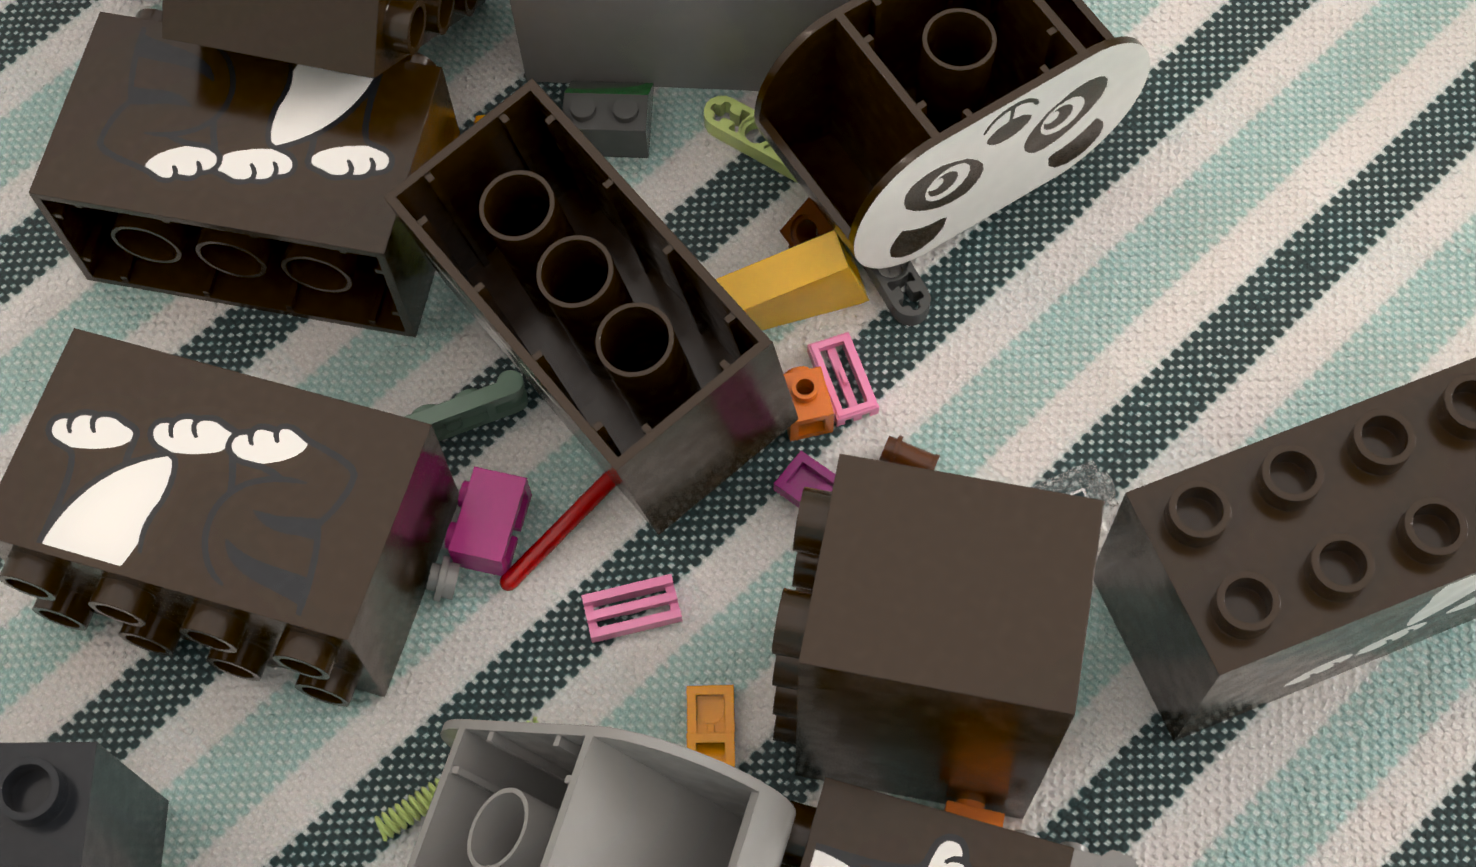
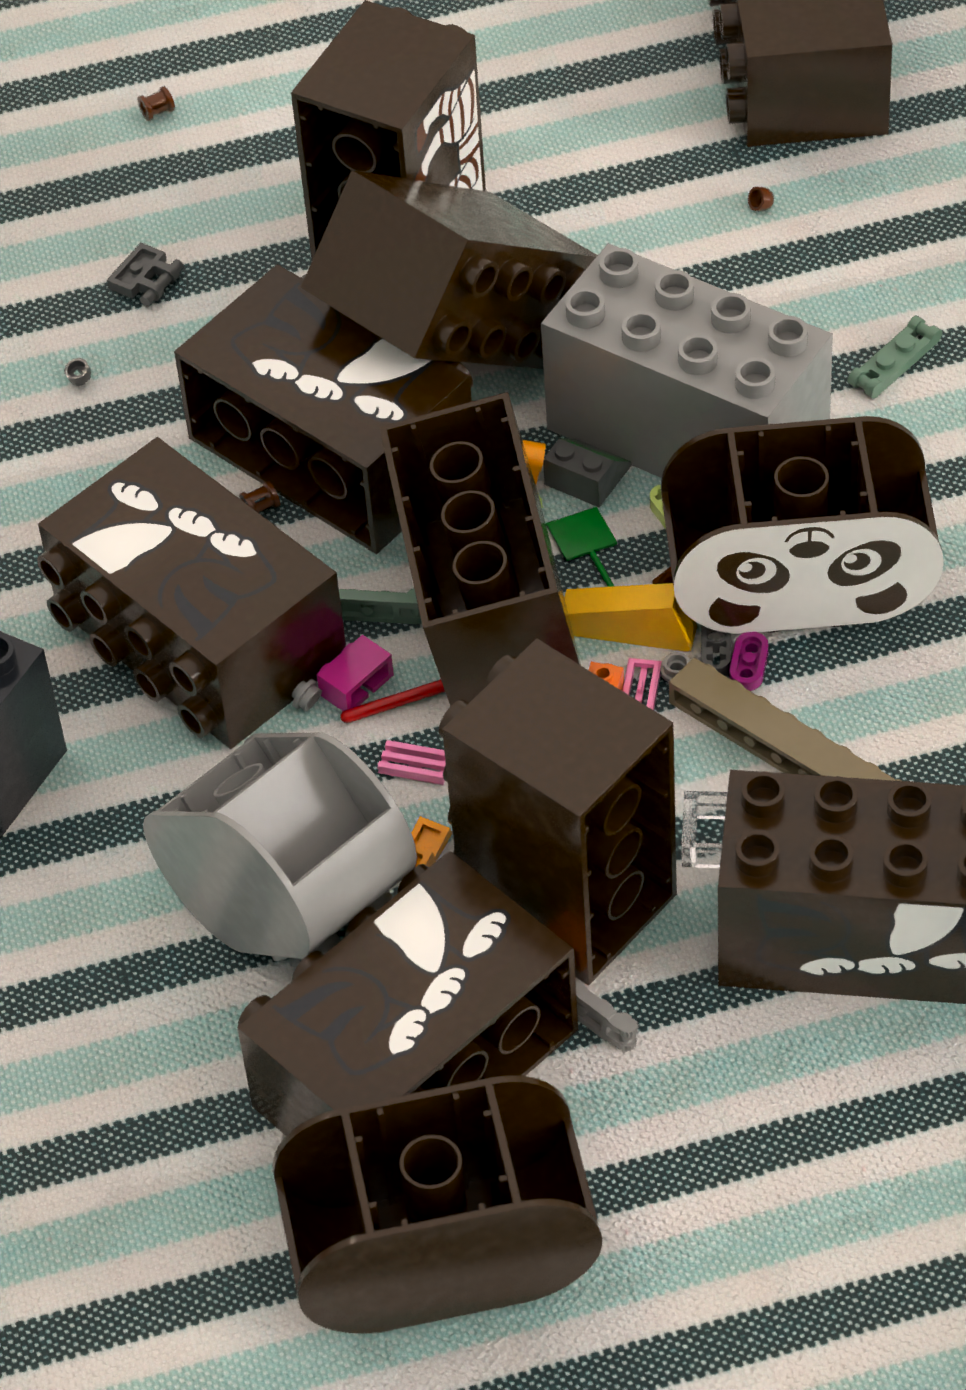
camera: 30 degrees right, 15 degrees down
(229, 329) = (267, 491): none -> reddish brown bush
(670, 202) = (583, 535): none -> green piece
(871, 323) = (672, 665): none -> light grey plate
(950, 289) = (749, 664): none -> magenta plate
(1068, 377) = (762, 727): none -> dark tan brick

